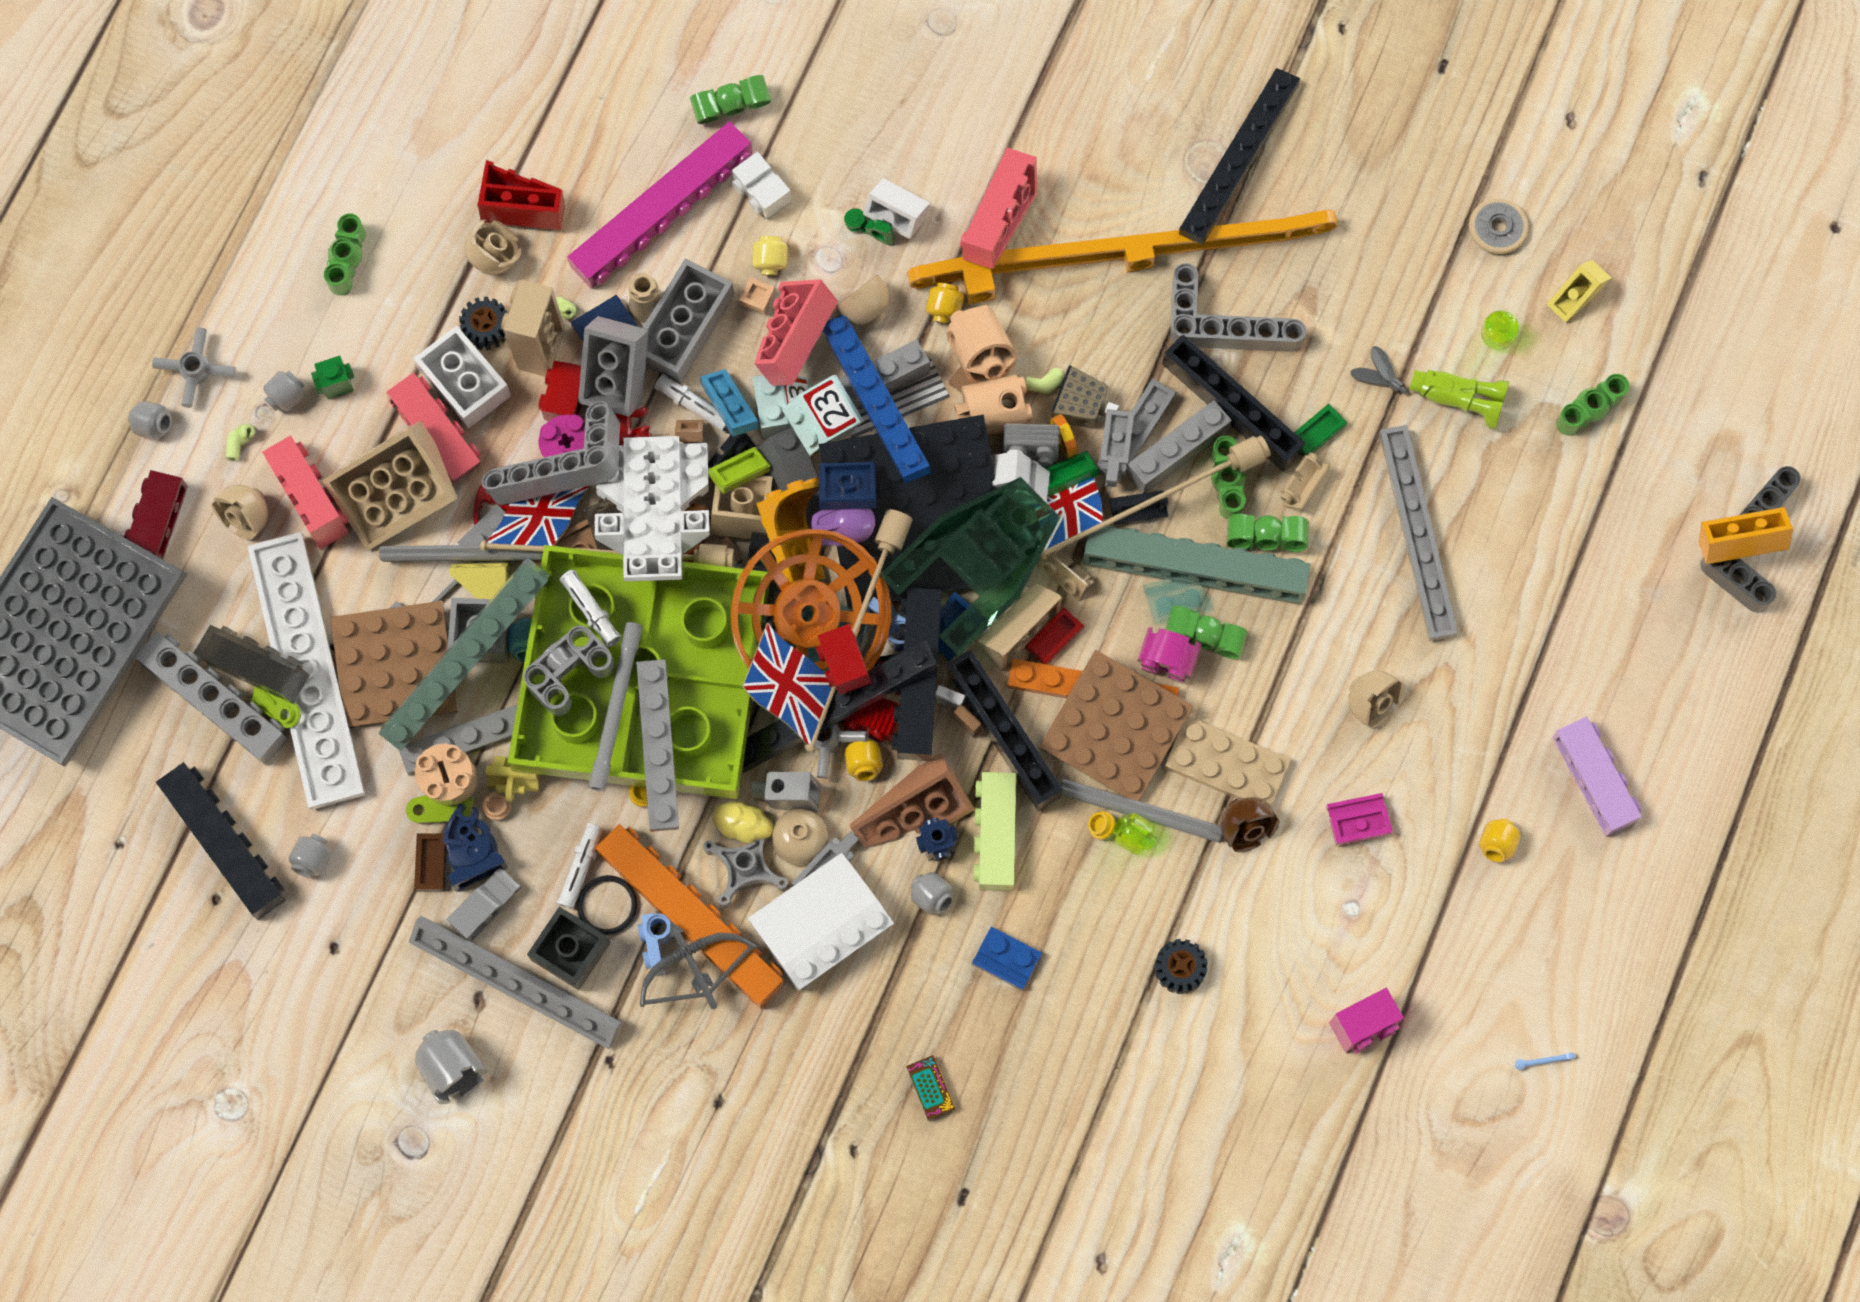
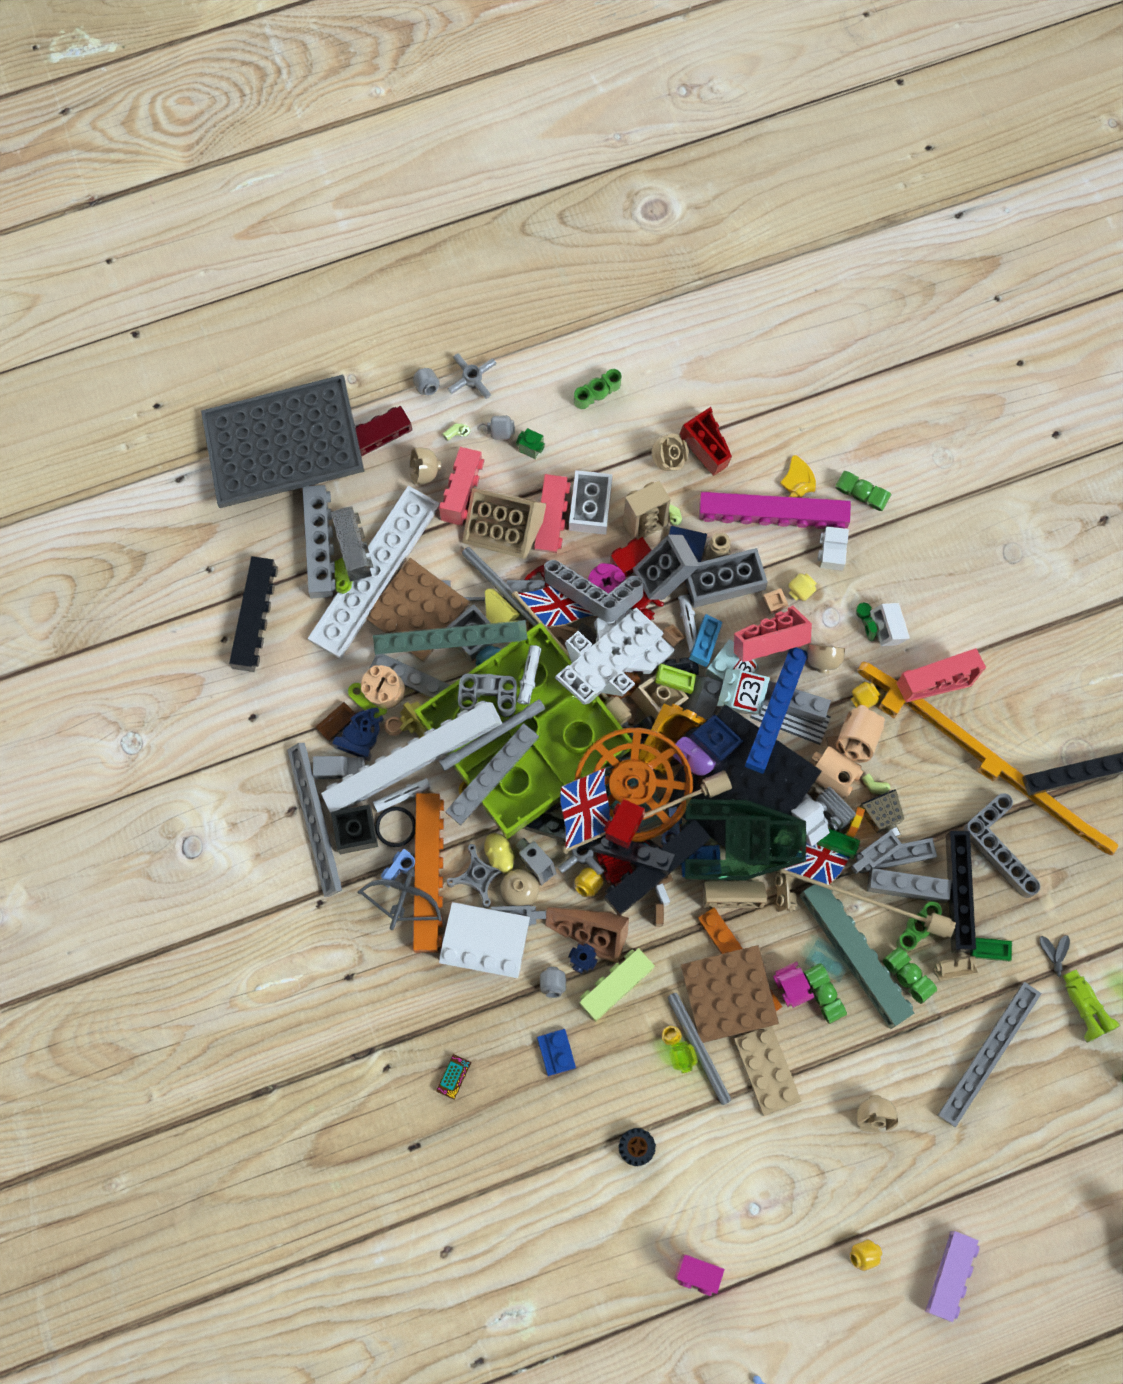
camera: 45 degrees right, 0 degrees up
(310, 856) = (284, 662): light grey head -> none
(448, 1065) = (242, 827): light grey cylinder -> none
(480, 315) = (625, 480): black wheel -> none
(555, 813) = (412, 757): none -> white brick
(652, 149) = (799, 478): none -> yellow arm
(1004, 730) = (671, 939): black brick -> none
(1054, 636) = (747, 917): red tile -> none
(1153, 511) = (851, 886): black hinge -> none
(1247, 822) = (744, 1110): reddish brown cylinder -> none
(1359, 819) = (804, 1168): dark pink plate -> none

